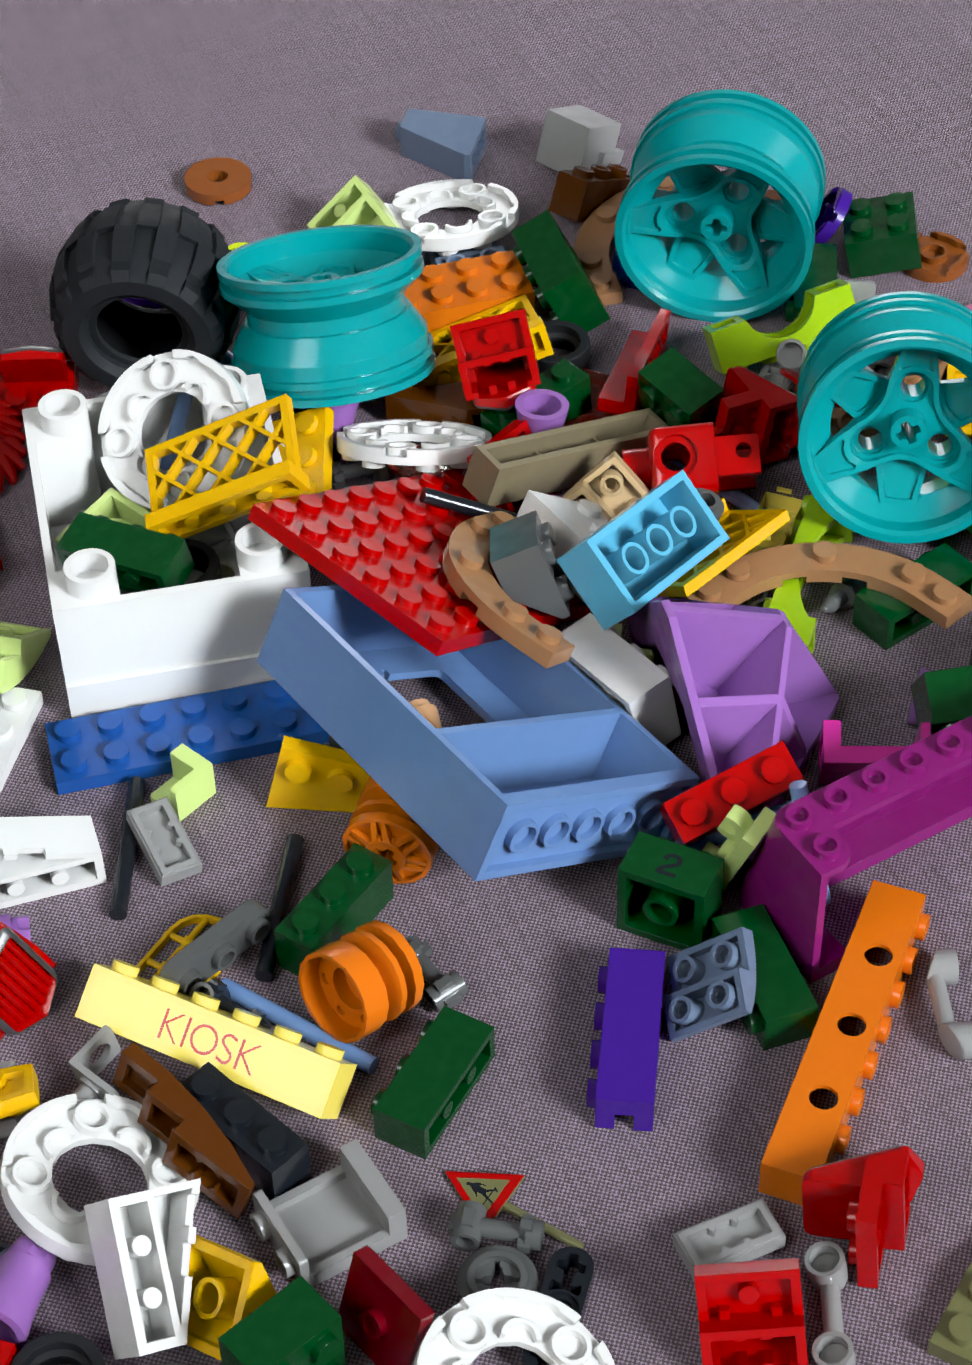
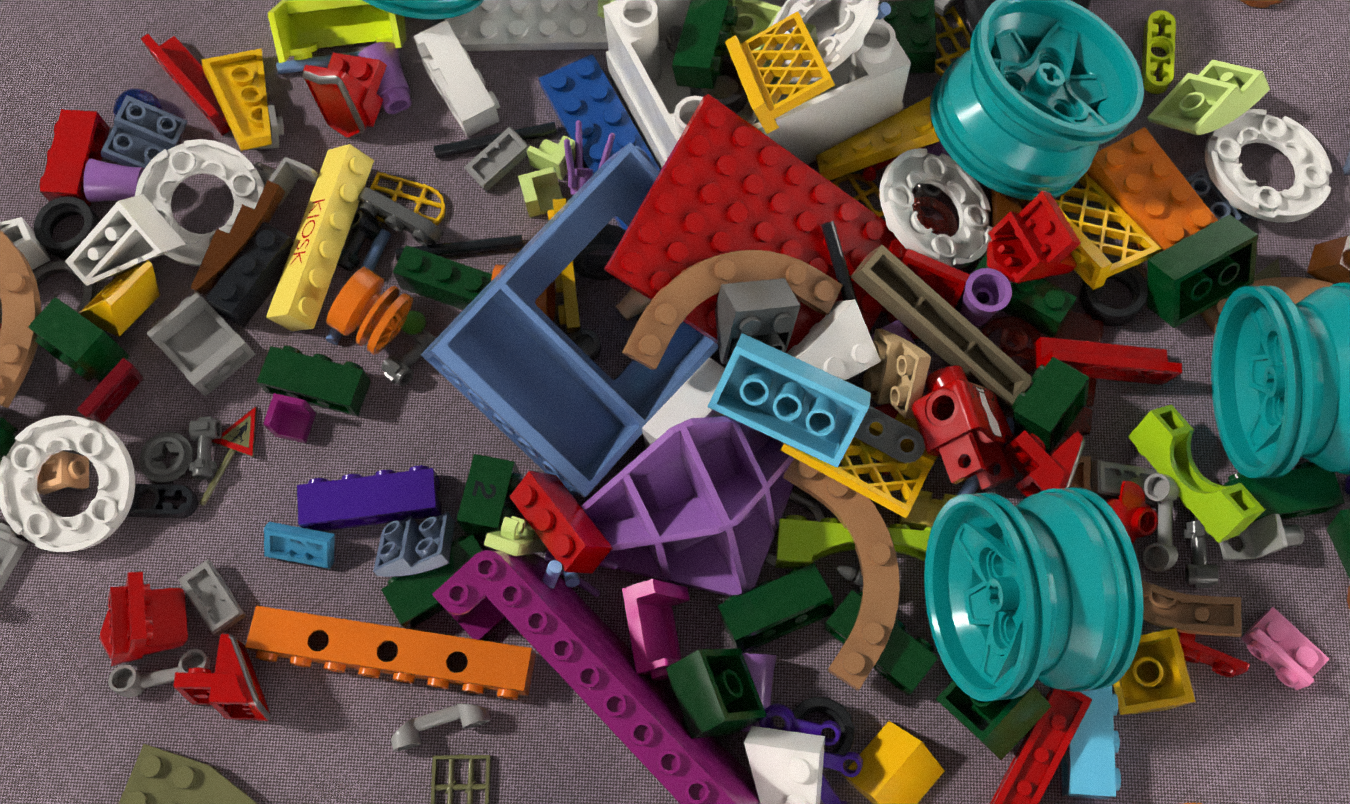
camera: 80 degrees right, 25 degrees up
(235, 810) = (539, 190): none -> yellowish green panel
(238, 754) = (579, 176): none -> medium lavender plant
(481, 1119) = (289, 418): none -> magenta panel
(675, 1125) = (299, 545): none -> dark azure plate
(860, 668) = (776, 608): none -> dark green brick

